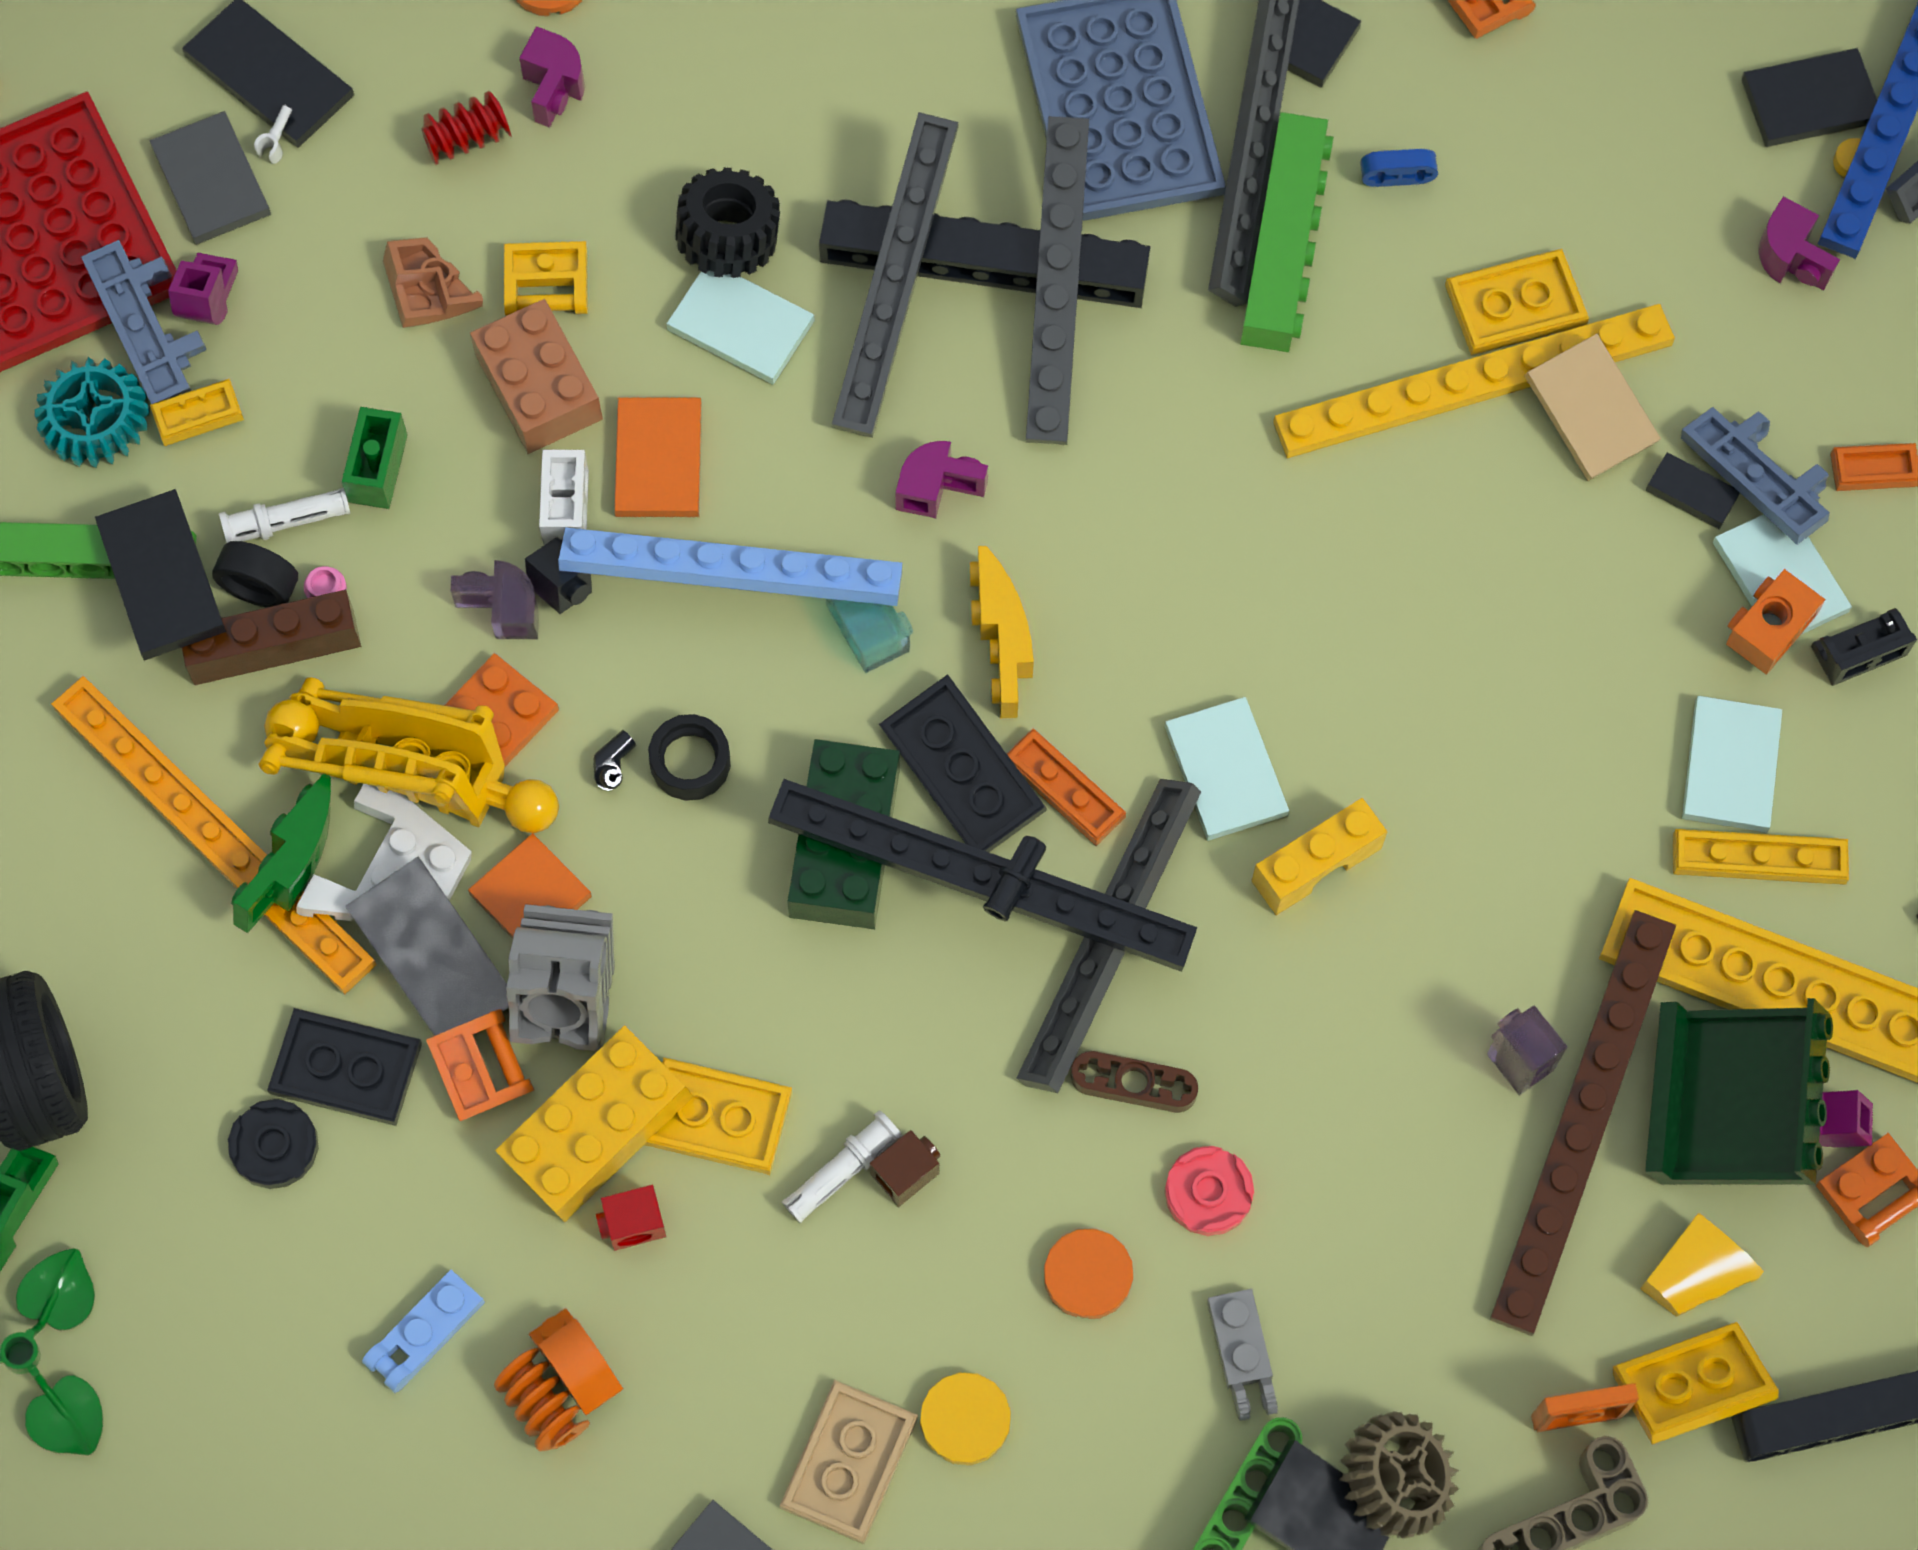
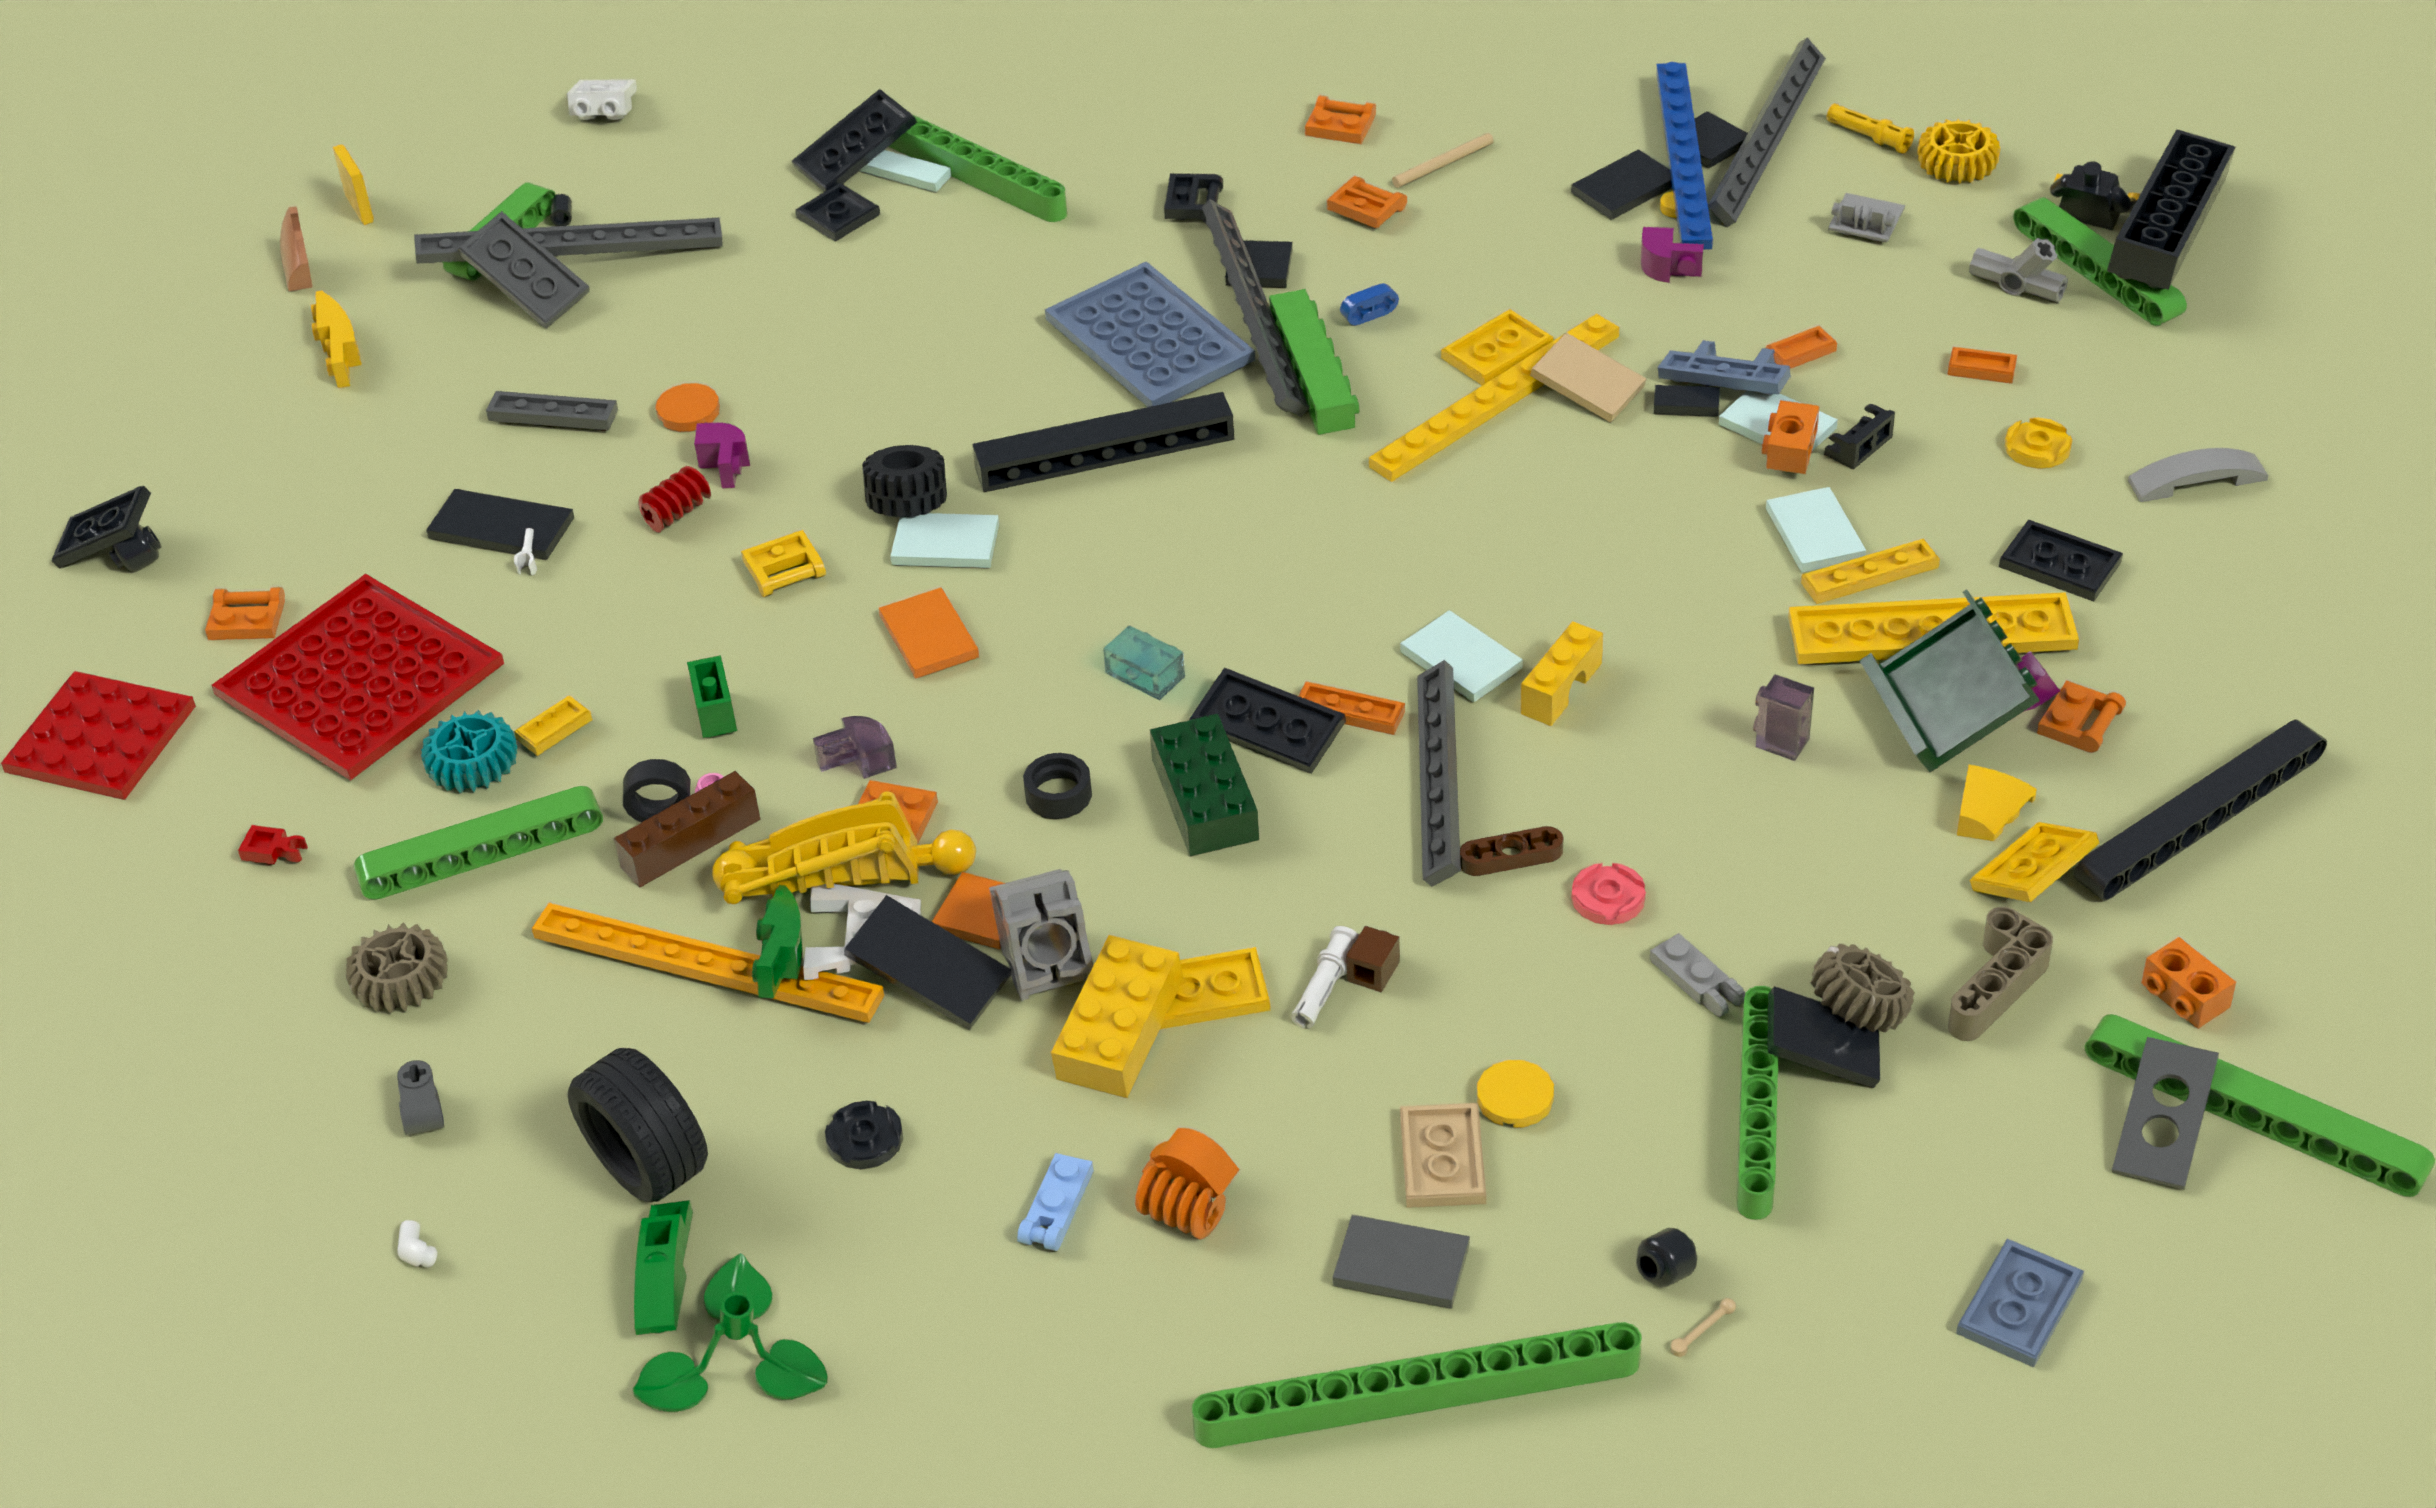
camera: 20 degrees left, 25 degrees down
(124, 292) = (463, 669): sand blue hinge -> none
(160, 574) = (583, 809): black tile -> none
(202, 288) = (520, 648): magenta brick -> none
(210, 177) = (488, 595): dark grey tile -> none
(264, 520) = (670, 751): white pin -> none
(345, 1066) = (895, 1066): black tile -> none
(425, 284) = (690, 597): nougat slope -> none
(466, 1072) = (996, 1025): orange plate -> none
(536, 376) = (809, 613): nougat brick -> none
(556, 587) = (897, 712): black brick -> none
(563, 492) = (873, 669): white brick -> none
(607, 761) = (996, 813): black arm -> none
(631, 1218) = (1181, 1065): red brick -> none
(730, 566) = (1023, 655): light blue plate -> none
(895, 275) = (1049, 464): dark grey plate -> none
(930, 471) = (1144, 566): magenta brick -> none
(977, 874) = (1325, 752): black plate -> none
(1005, 626) = (1248, 630): yellow slope -> none
(1015, 878) = (1353, 738): black axle -> none
(1057, 280) = (1169, 429): dark grey plate -> none
(1088, 1273) = (1551, 973): orange tile -> none
(1582, 1123) = (1852, 754): reddish brown plate -> none
(1584, 1407) = (1967, 897): orange tile -> none

